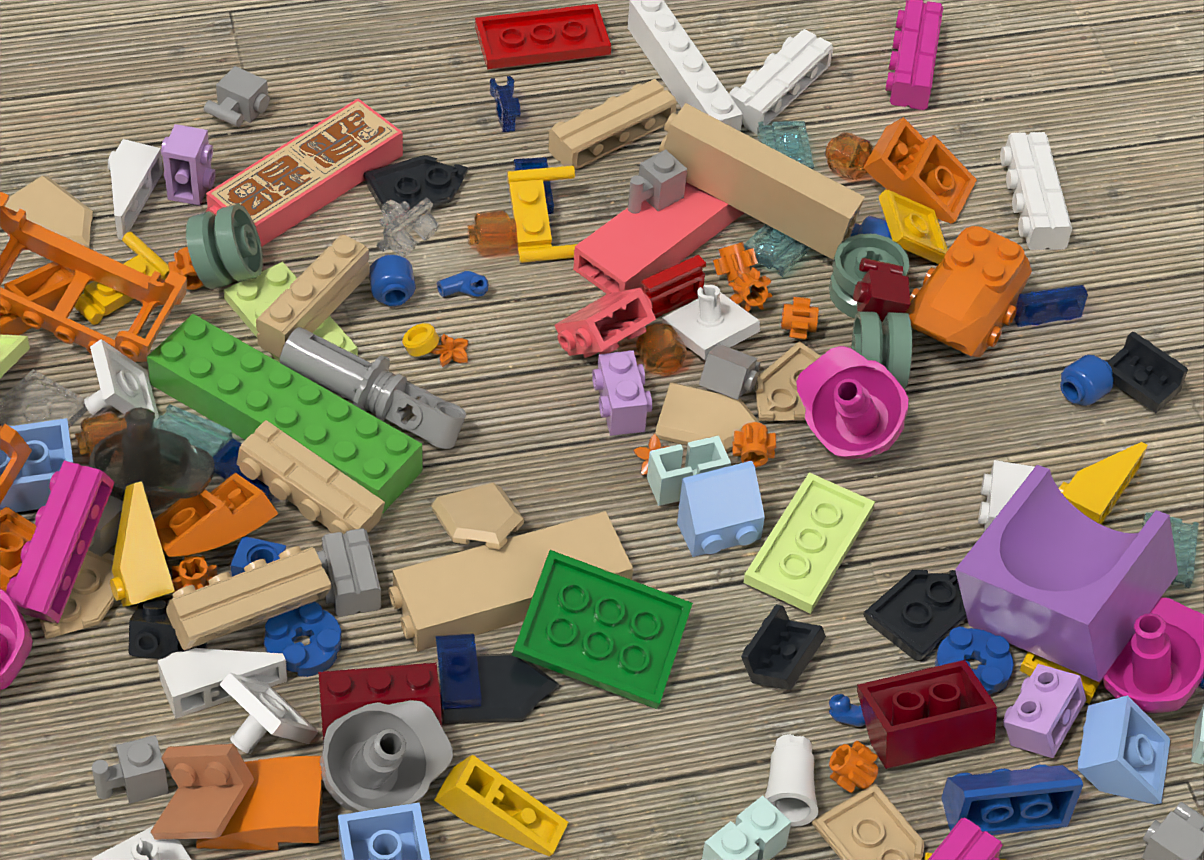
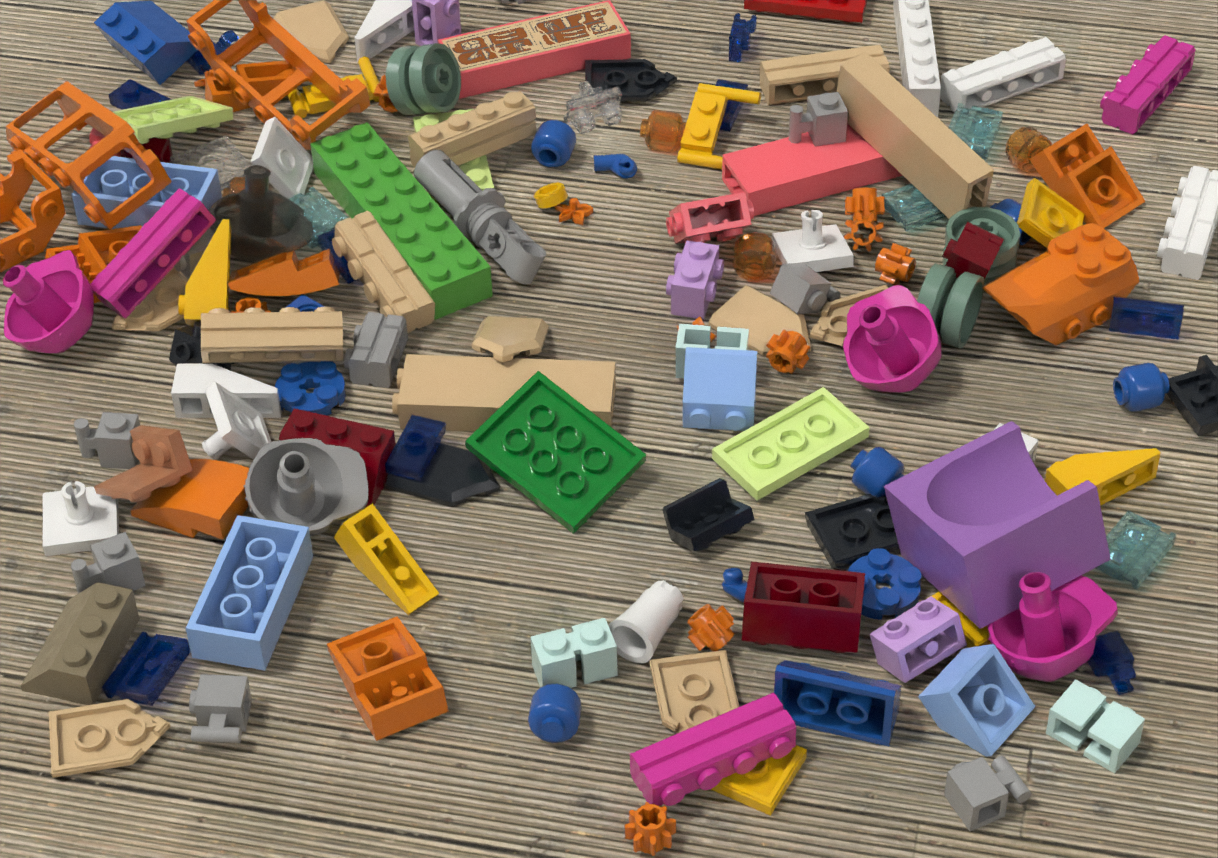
camera: 30 degrees right, 5 degrees down
(675, 285) = (783, 208): red plate -> none
(909, 548) = (875, 470): none -> blue head

